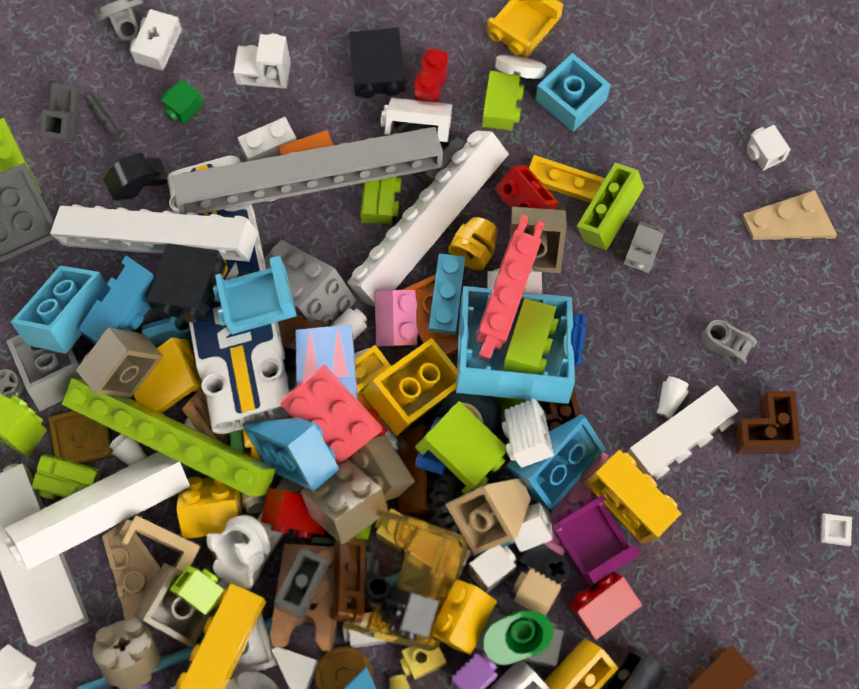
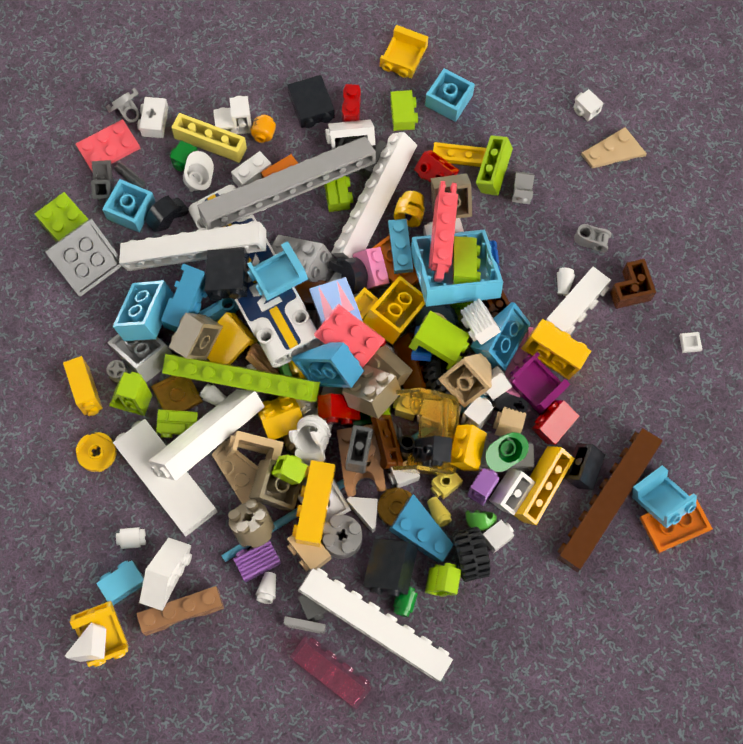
camera: 15 degrees left, 0 degrees up
(86, 154) = (128, 205): none -> medium azure brick
(87, 64) = (108, 144): none -> coral plate
(194, 123) = (198, 171): none -> white piece
(222, 83) = (209, 137): none -> light yellow brick
(300, 86) = (263, 128): none -> light orange head
(367, 319) = (353, 270): none -> black brick
(525, 67) = (410, 84): white tile -> none

